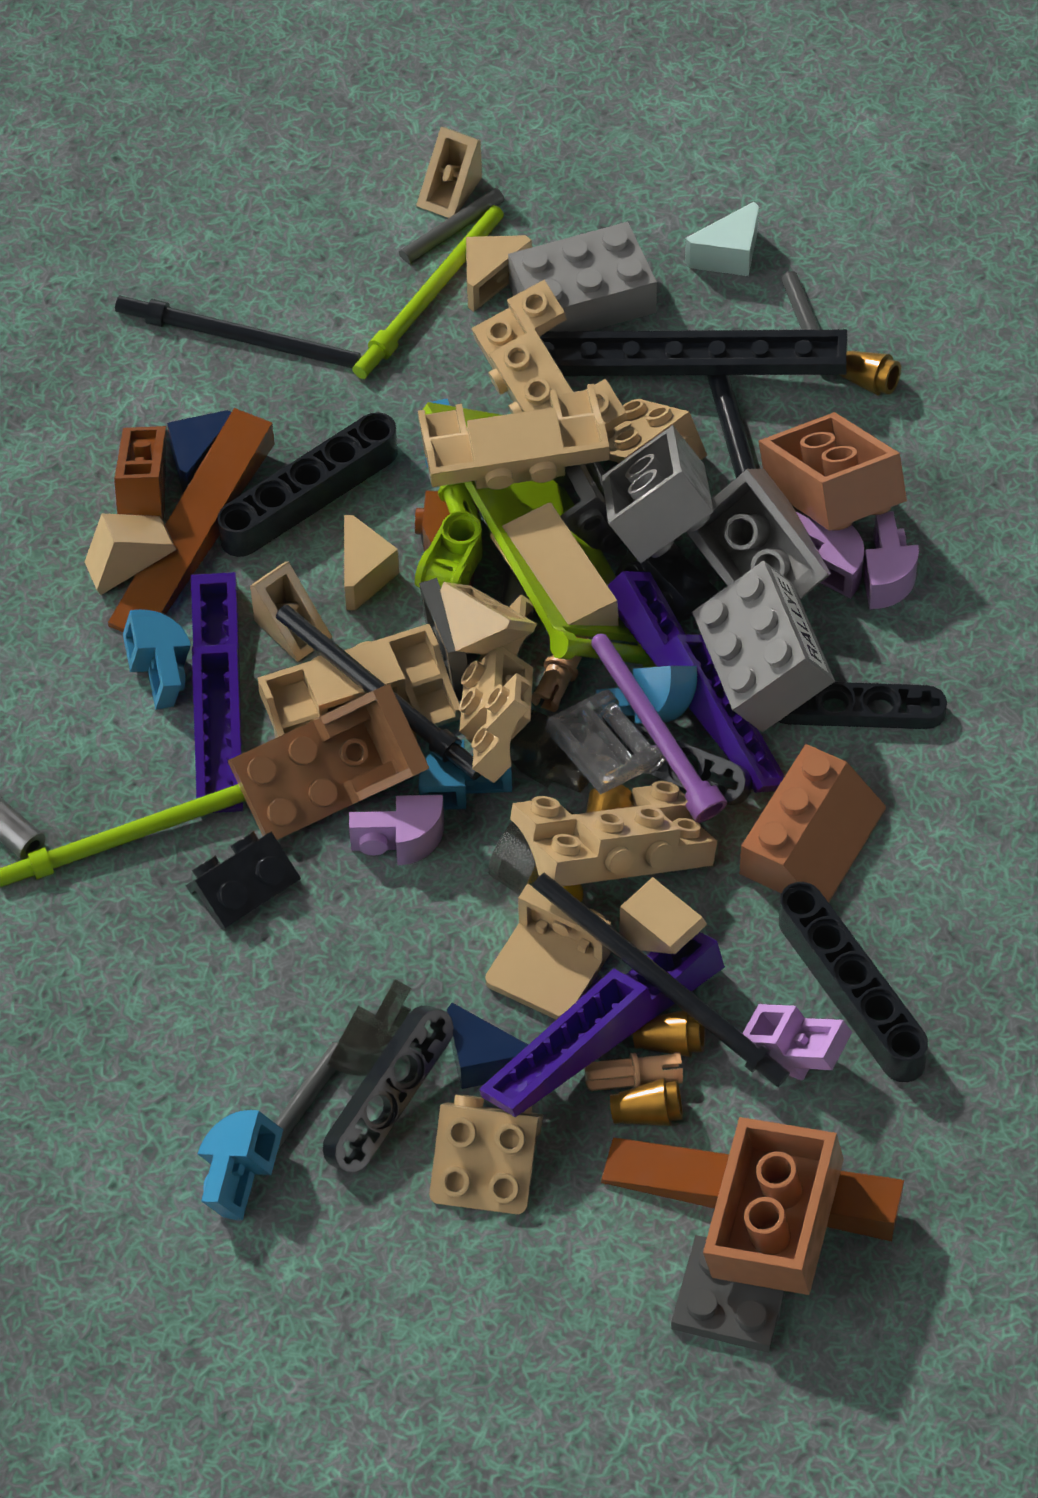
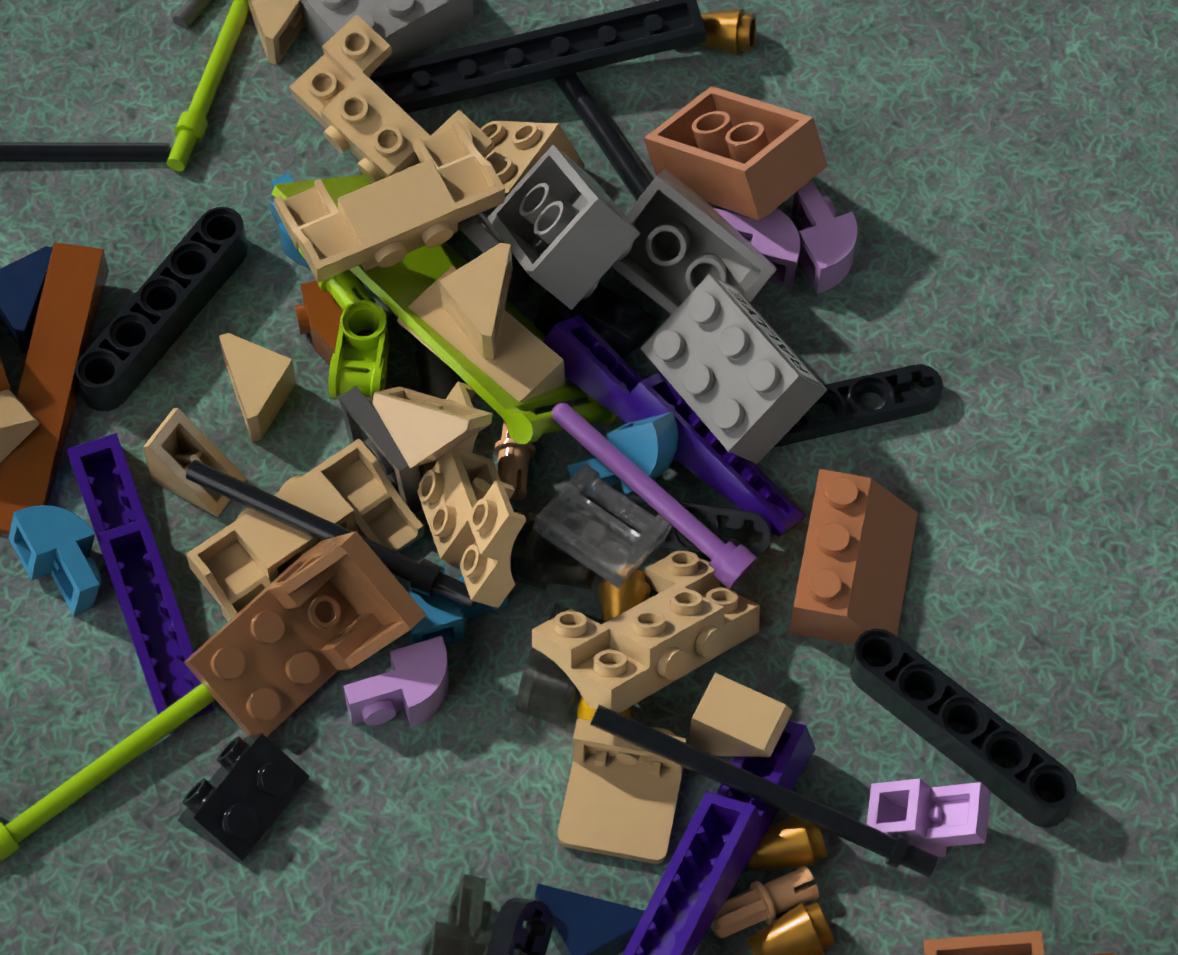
camera: 20 degrees left, 5 degrees up
(562, 529) = (478, 296): none -> tan slope

